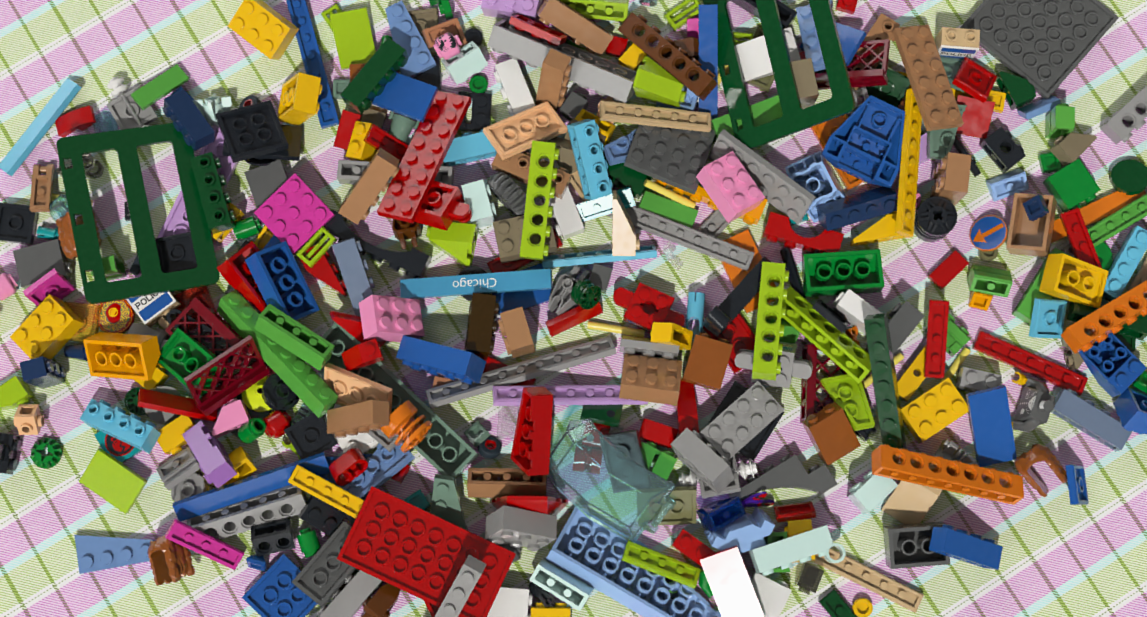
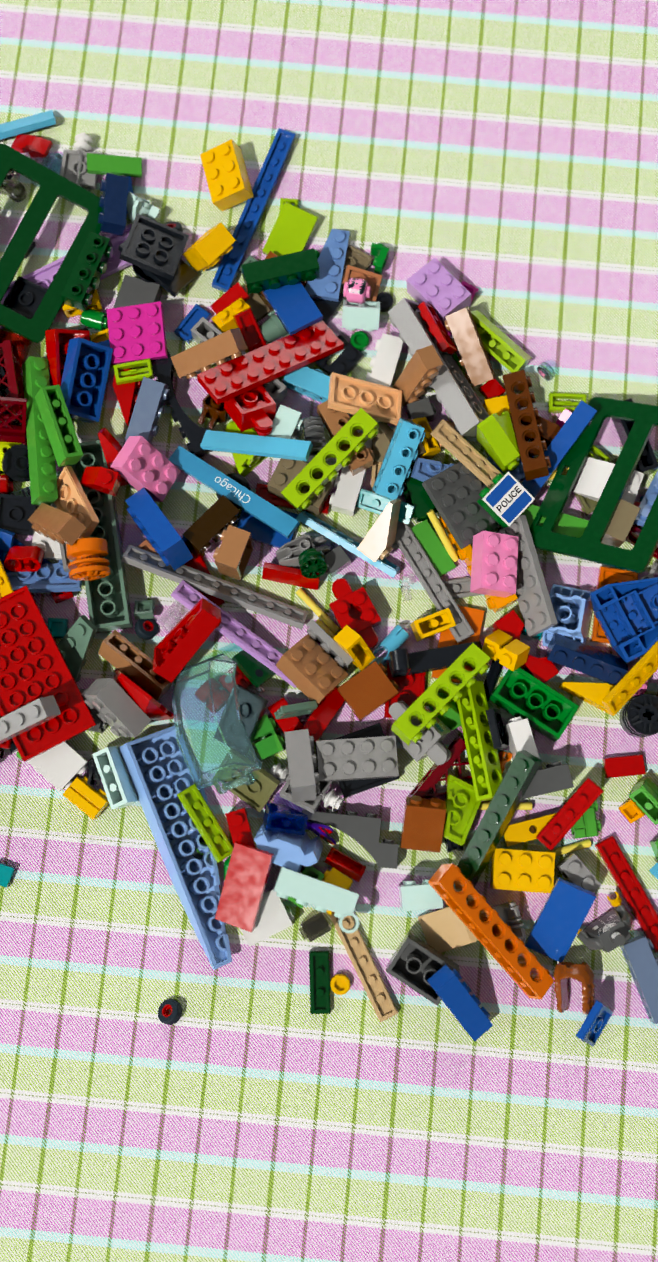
camera: 35 degrees right, 0 degrees up
(329, 170) = (189, 321): none -> blue tile
(468, 233) = (256, 445): none -> medium azure tile
(663, 420) = (295, 710): none -> sand green tile
(699, 128) = (505, 499): none -> piece
(717, 271) = (432, 624): none -> yellow slope
(797, 251) = (511, 655): none -> yellow piece

